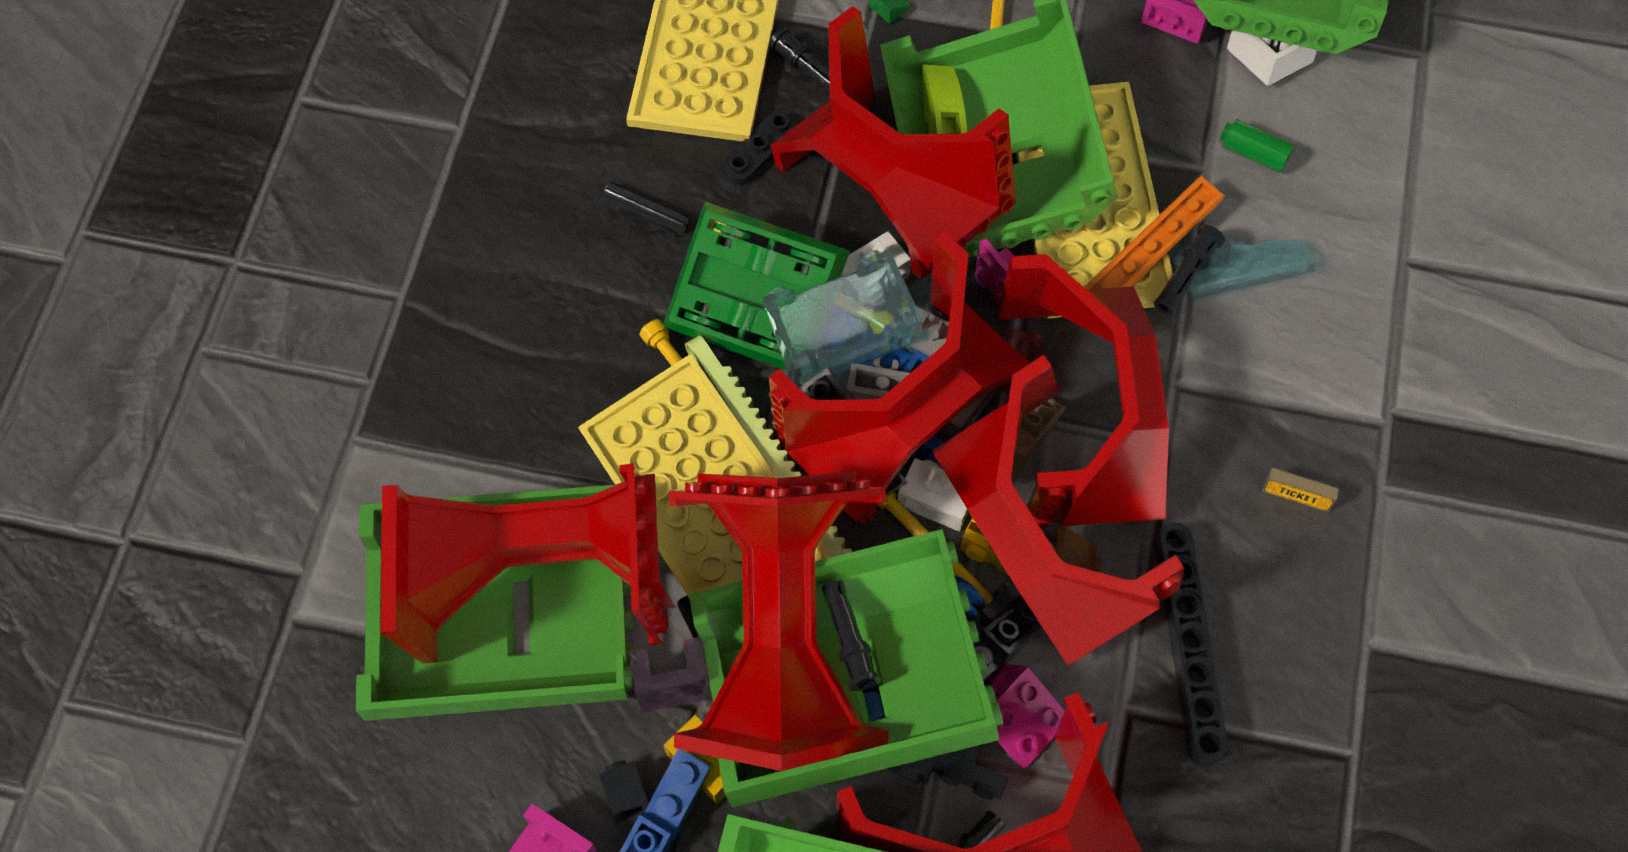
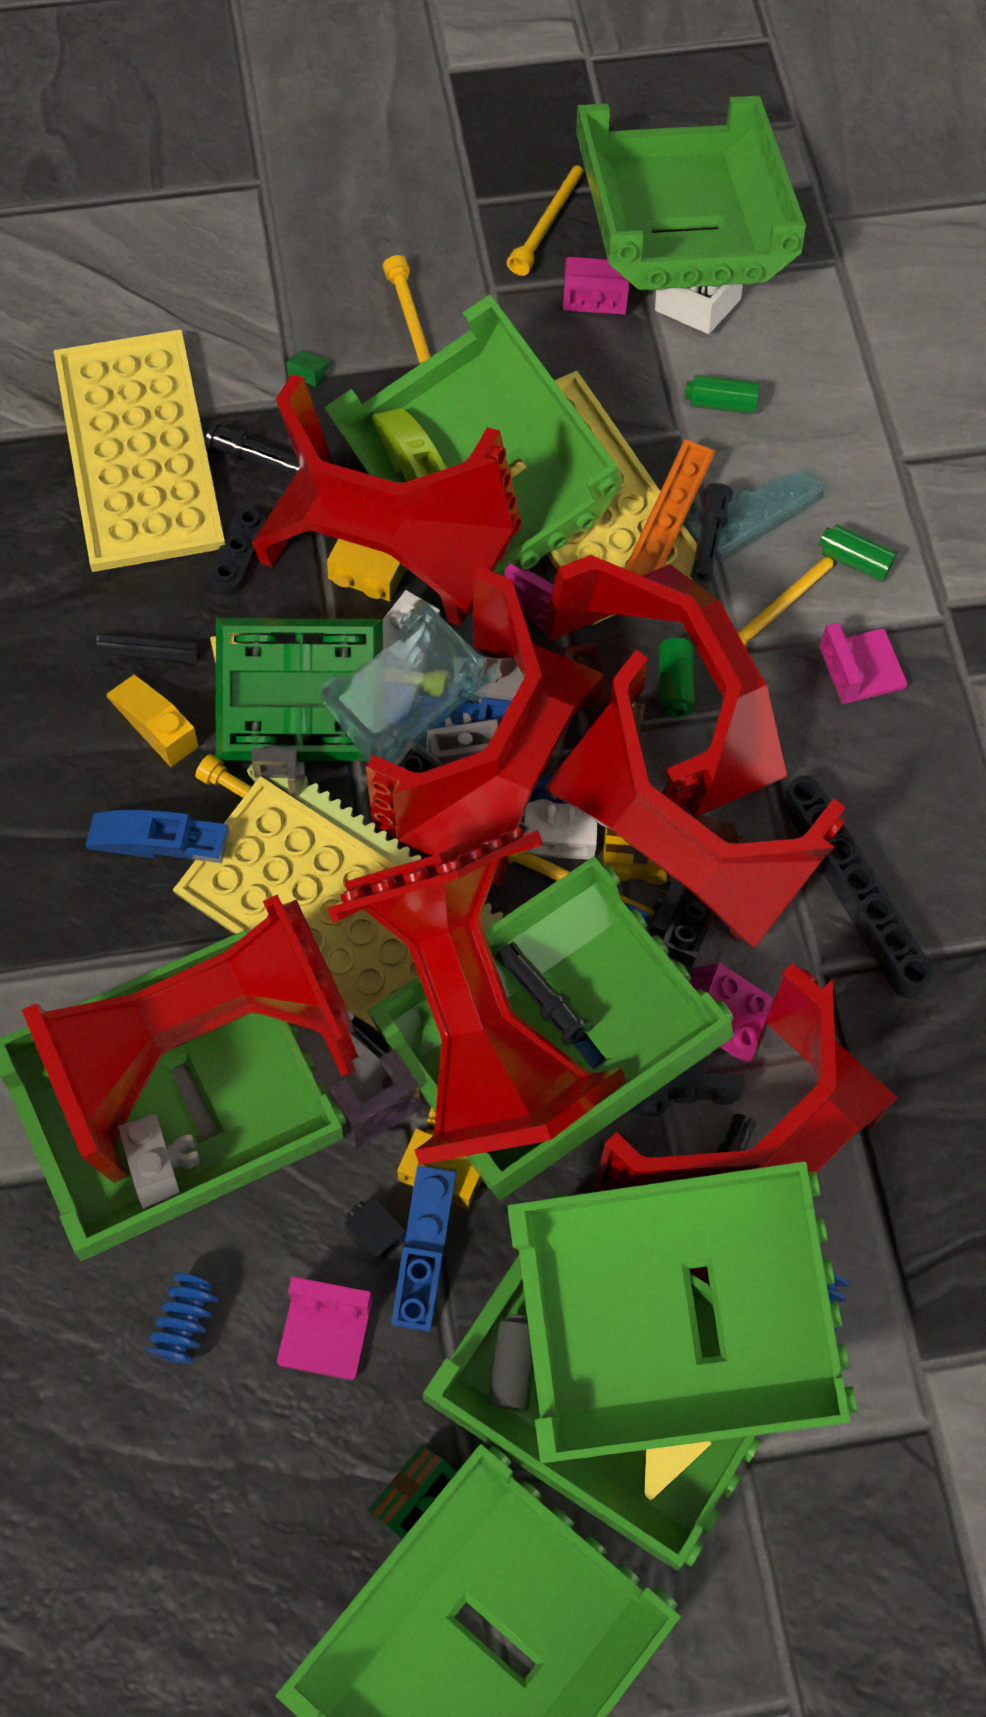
camera: 25 degrees left, 0 degrees up
(430, 804) = (182, 1319): none -> blue piece
(458, 656) = (153, 1161): none -> light grey brick
(584, 375) = (157, 832): none -> blue slope
(625, 273) = (155, 719): none -> yellow slope
(708, 347) = (278, 763): none -> flat silver bracket
(858, 203) = (364, 570): none -> yellow brick
(1100, 395) = (676, 677): none -> green brick
(1172, 379) = (785, 599): none -> yellow piece
(1284, 438) = (861, 663): none -> dark pink bracket
(1300, 489) = (897, 706): tile -> none
(1323, 333) = (857, 552): none -> green brick

